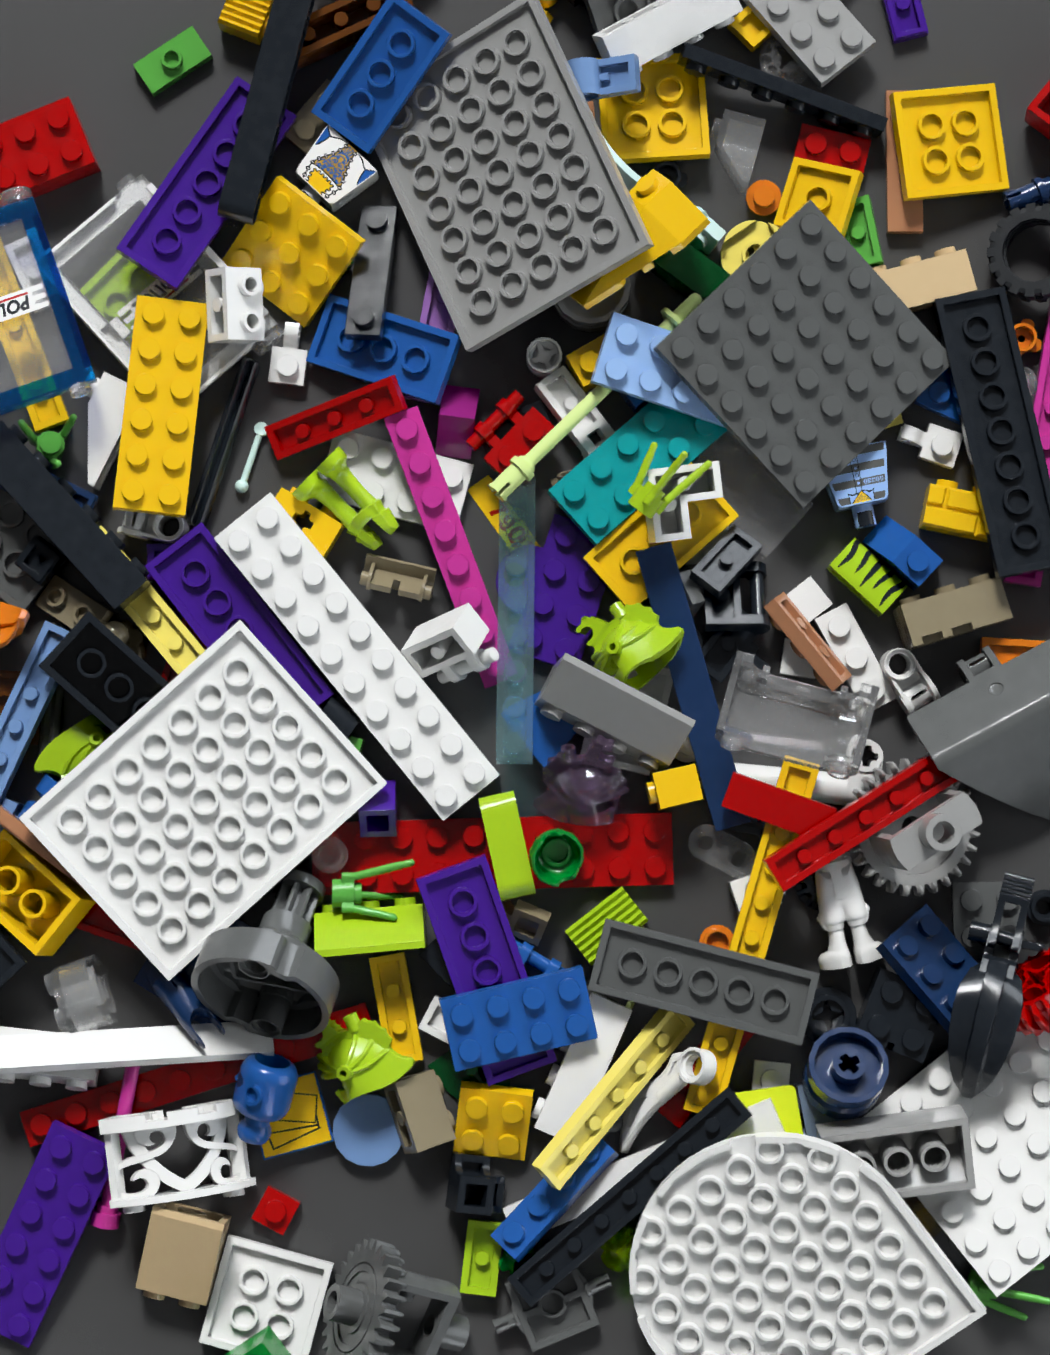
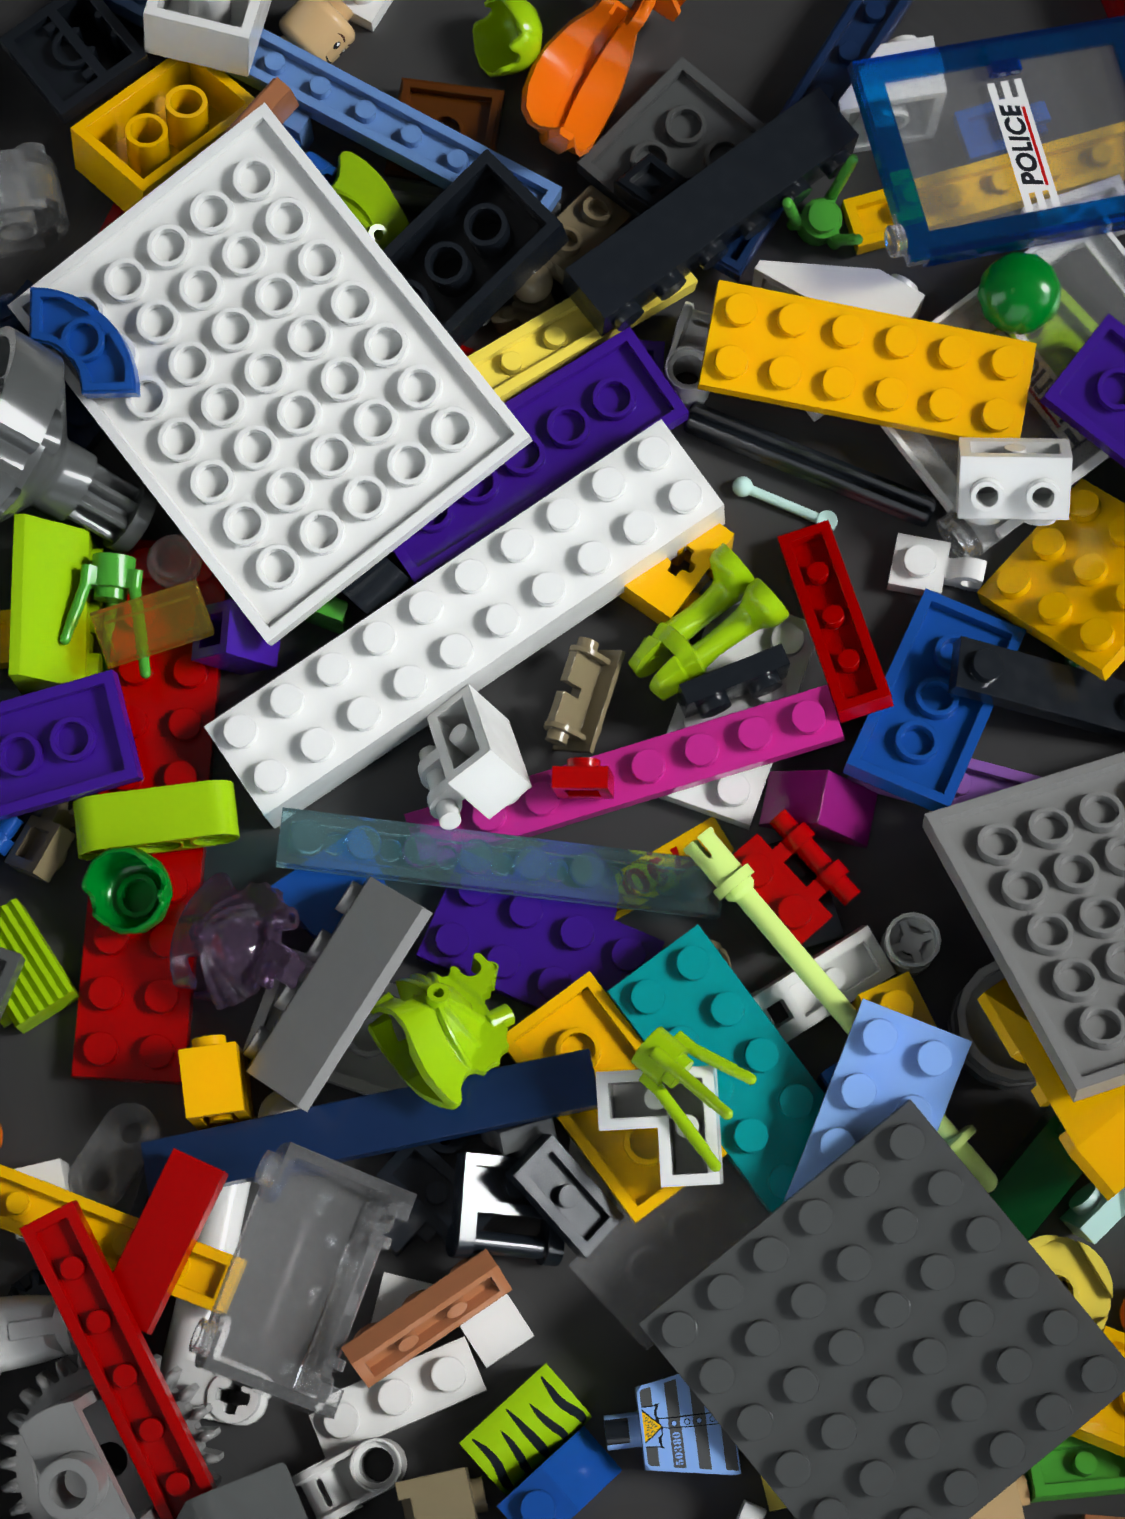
camera: 90 degrees right, 10 degrees down
(102, 307) = (1019, 293): none -> green hair
(192, 922) = (87, 340): none -> blue tile
(380, 860) = (152, 624): none -> clear yellow tile
(393, 492) = (754, 674): none -> black plate
(460, 570) = (583, 779): none -> red plate

